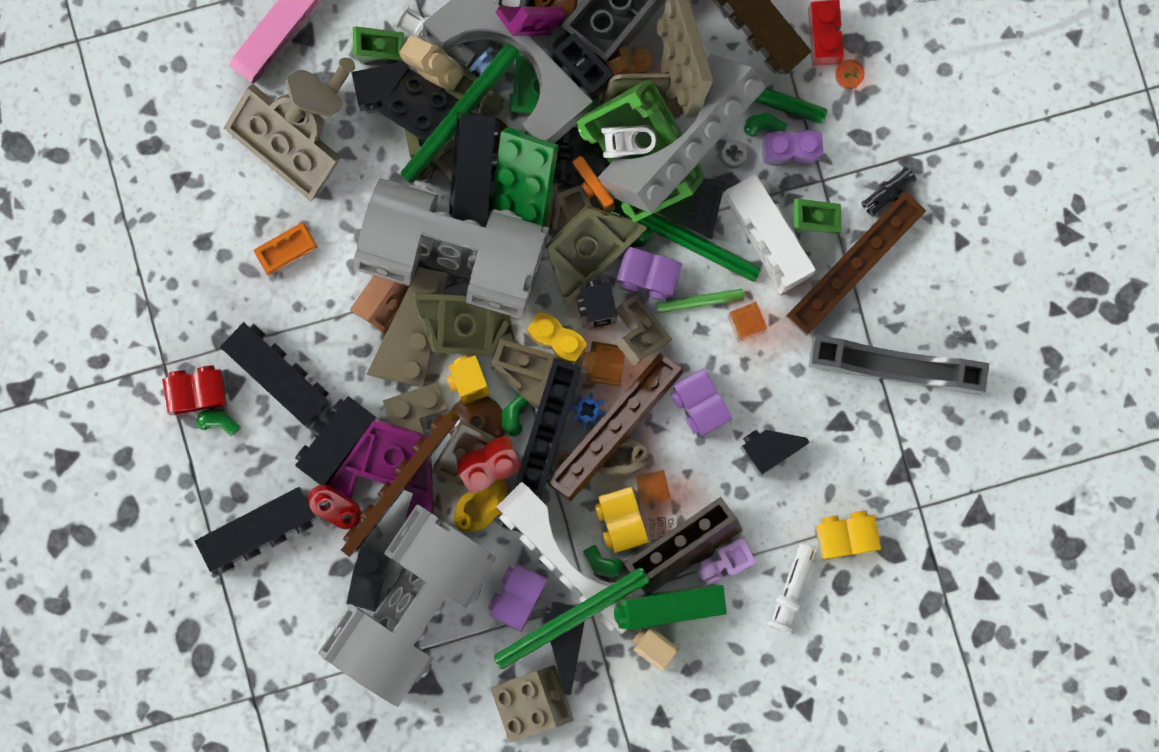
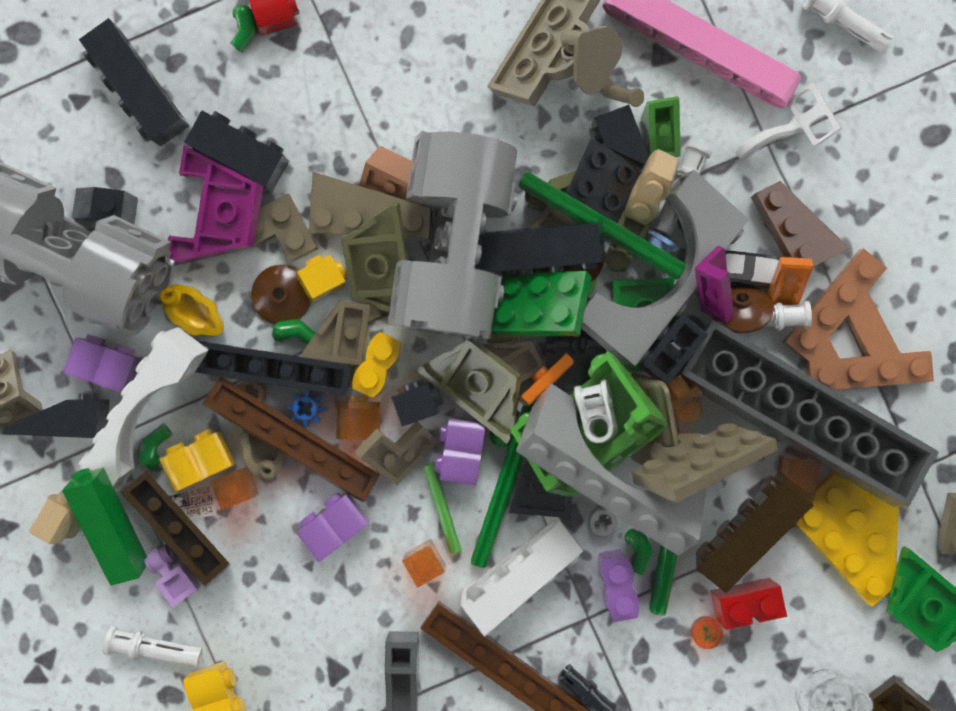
camera: 85 degrees right, 5 degrees up
(275, 374) = (299, 77): black brick -> none
(285, 248) = (432, 68): orange plate -> none
(337, 506) = (167, 159): red plate -> none
(406, 472) = (205, 226): reddish brown plate -> none
(463, 440) = (251, 289): dark tan plate -> none
(482, 466) = (229, 312): red brick -> none
(571, 618) = (76, 425): green axle -> none
(770, 448) = (294, 607): black slope -> none
(817, 216) = (547, 620): bright green slope -> none

